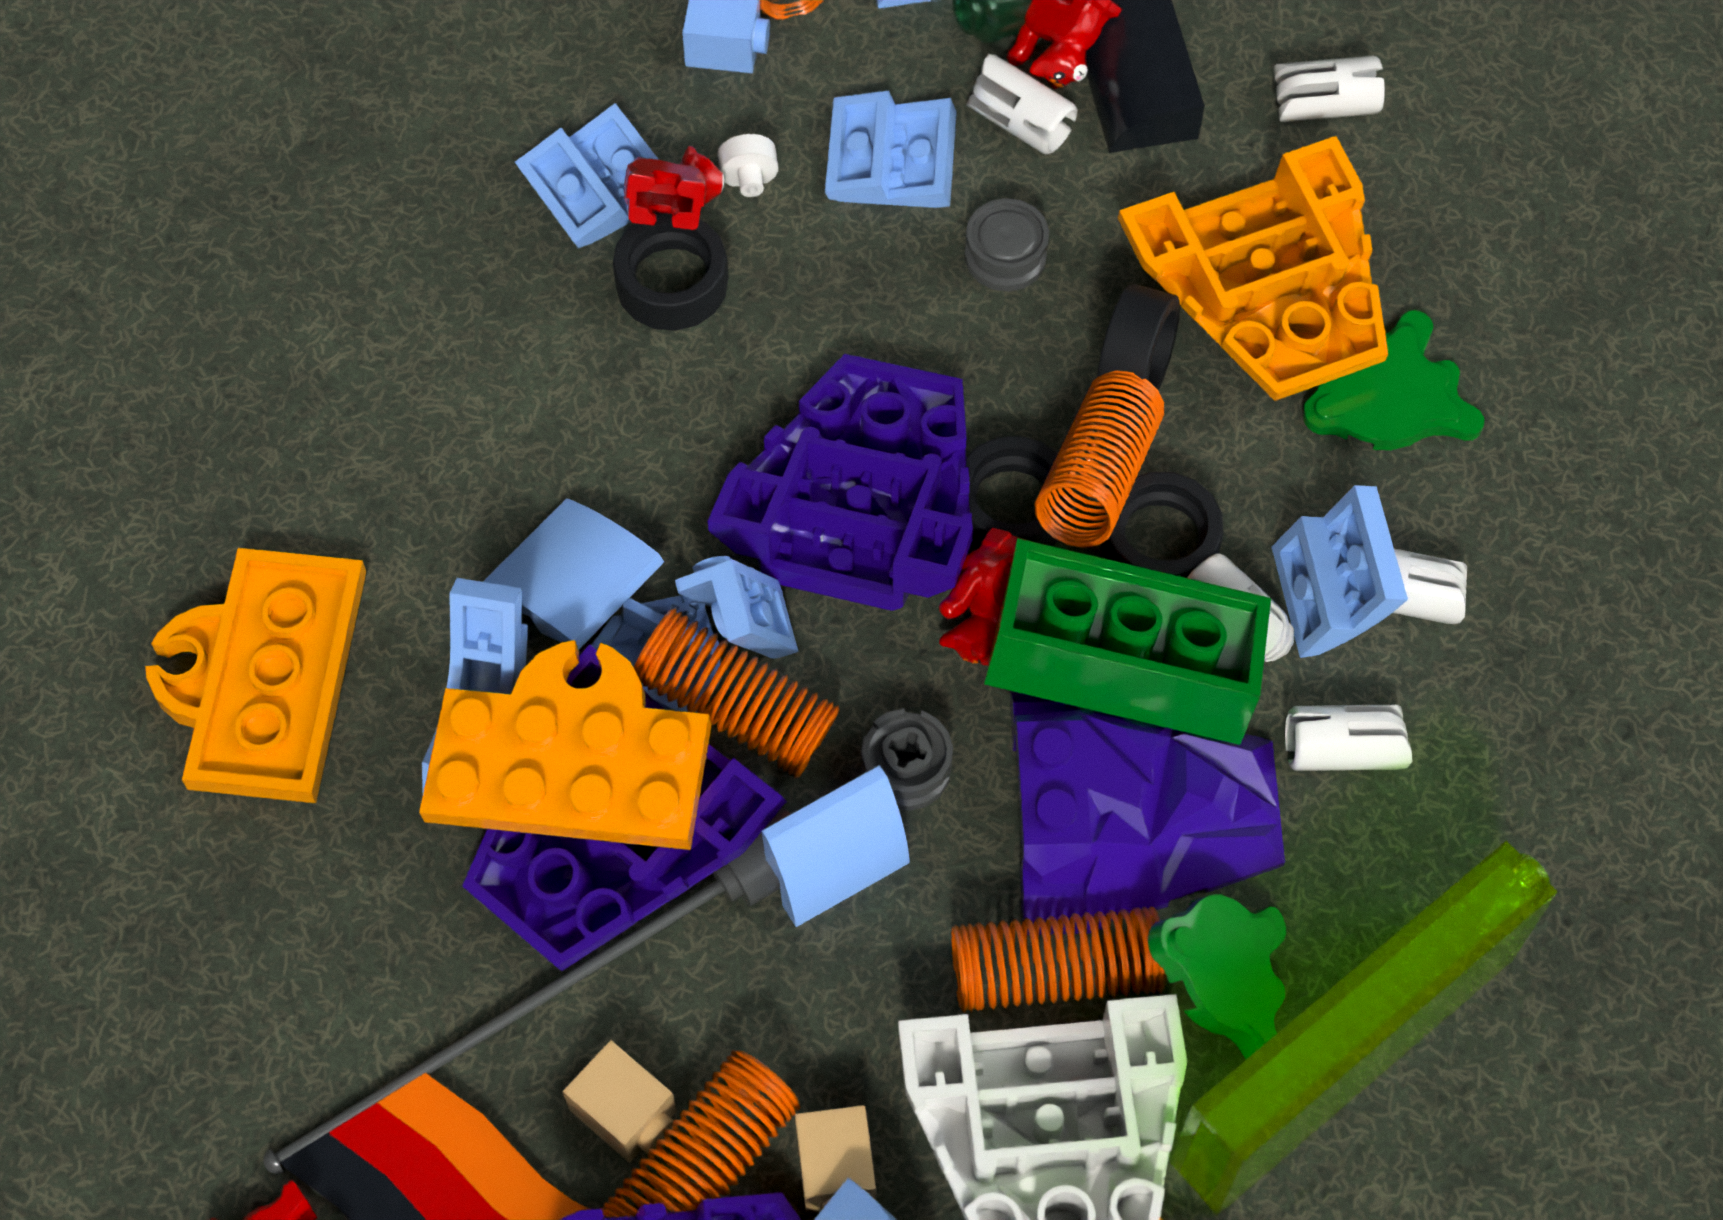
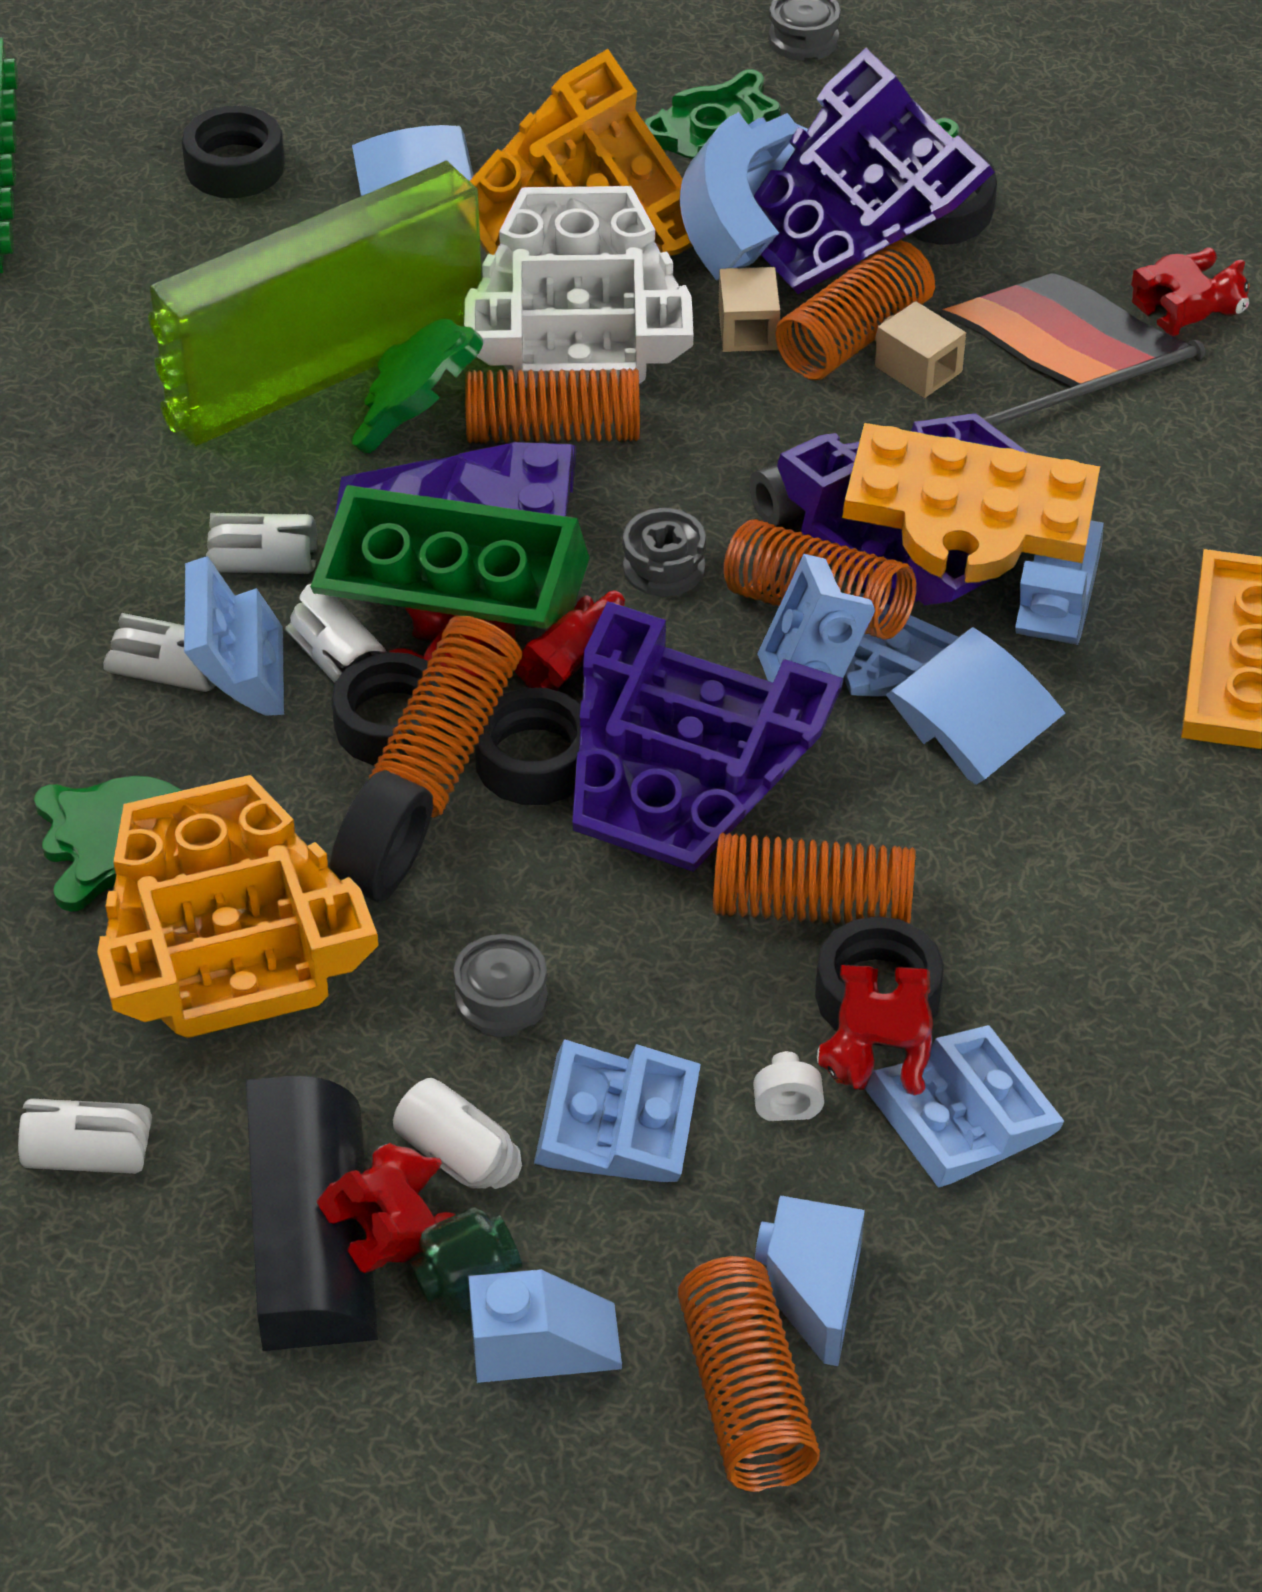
camera: 175 degrees left, 15 degrees down
(650, 352) = (843, 884): none -> orange piece
(836, 846) = (723, 465): light blue slope -> none

